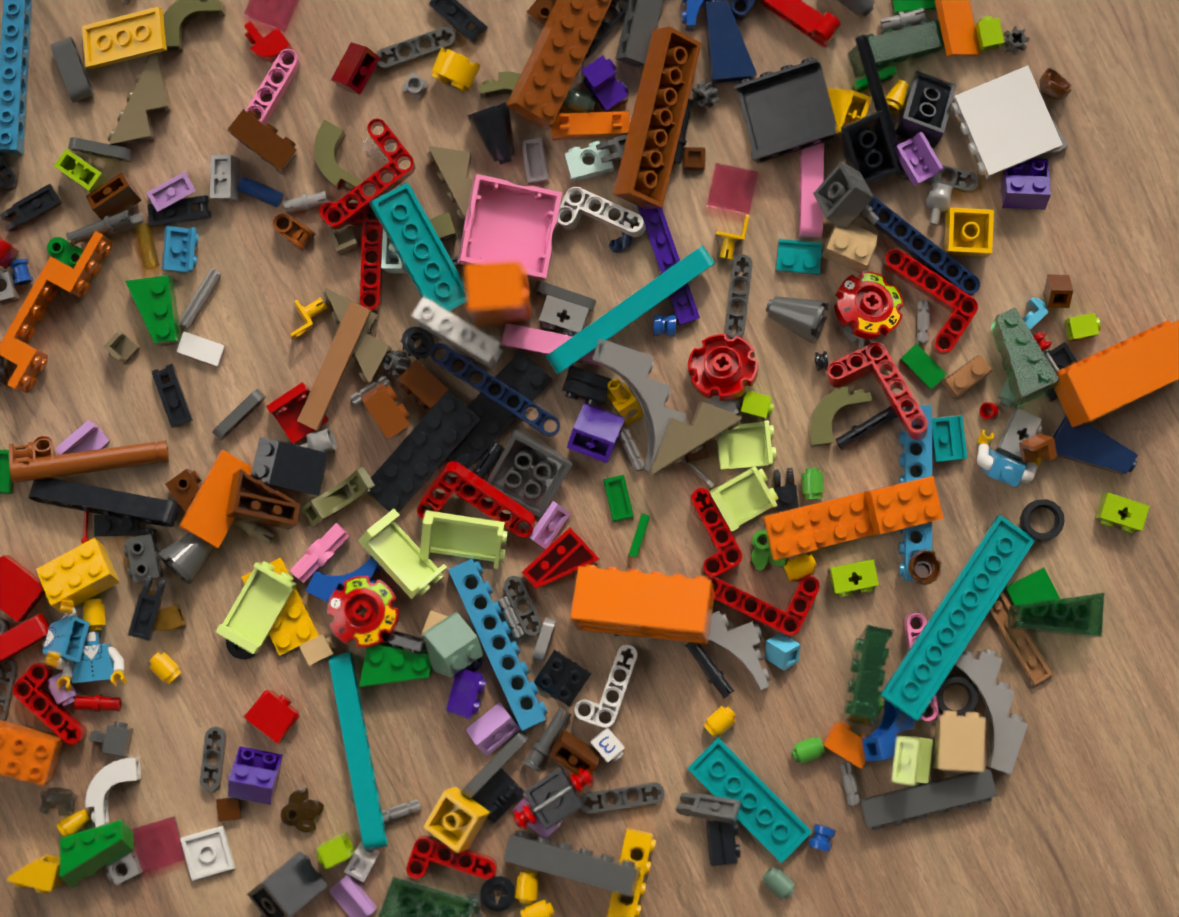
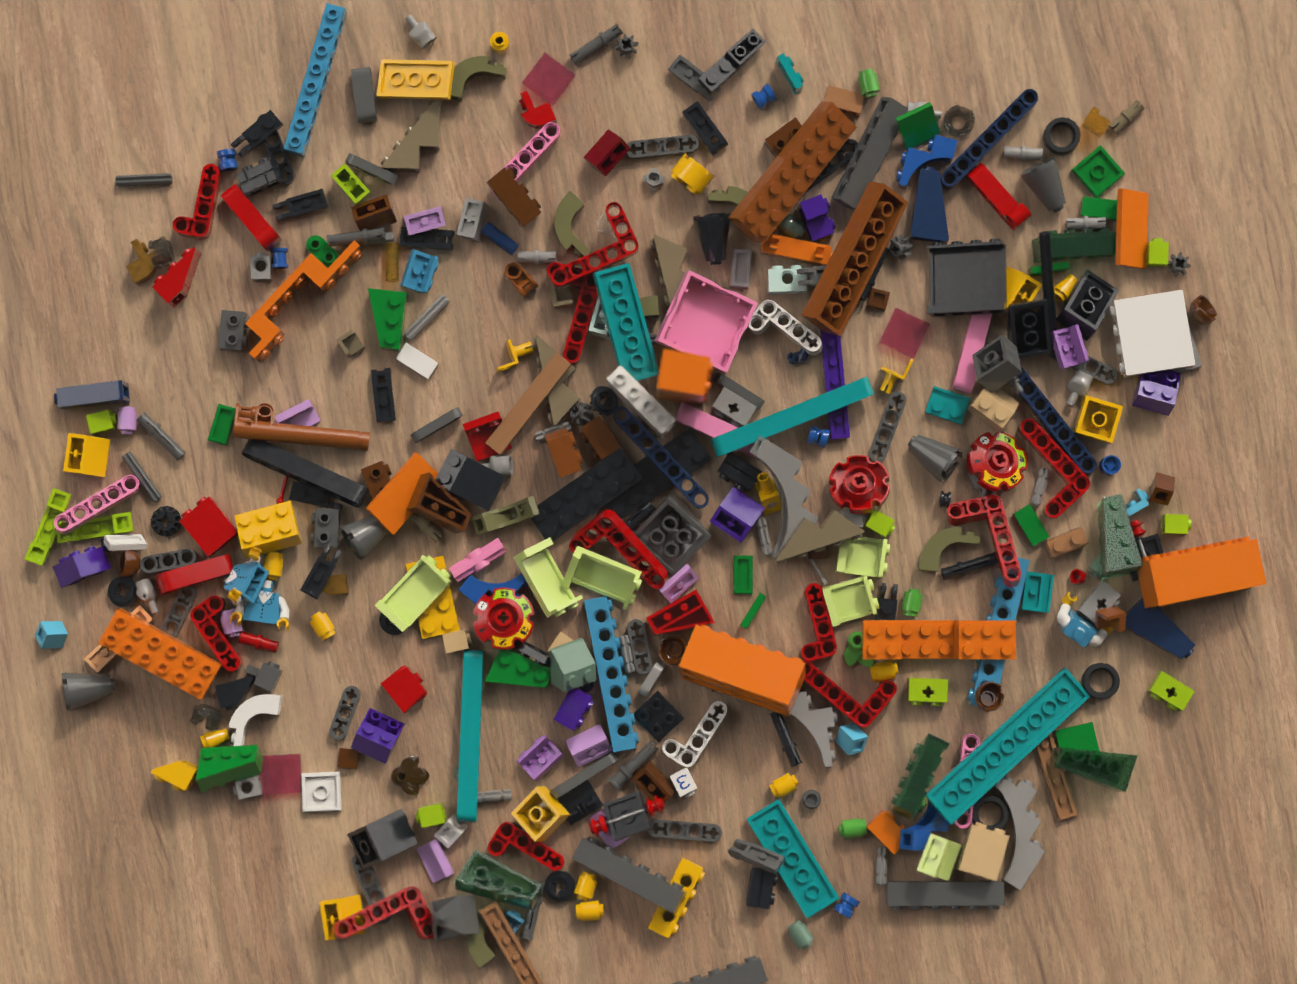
camera: 10 degrees right, 0 degrees up
(82, 766) = (233, 692): none -> black slope
(441, 756) = (540, 757): none -> medium lavender bracket
(559, 600) = (672, 650): none -> reddish brown hair
(754, 729) = (811, 799): none -> dark grey plate
(994, 279) = (1113, 464): none -> blue wheel

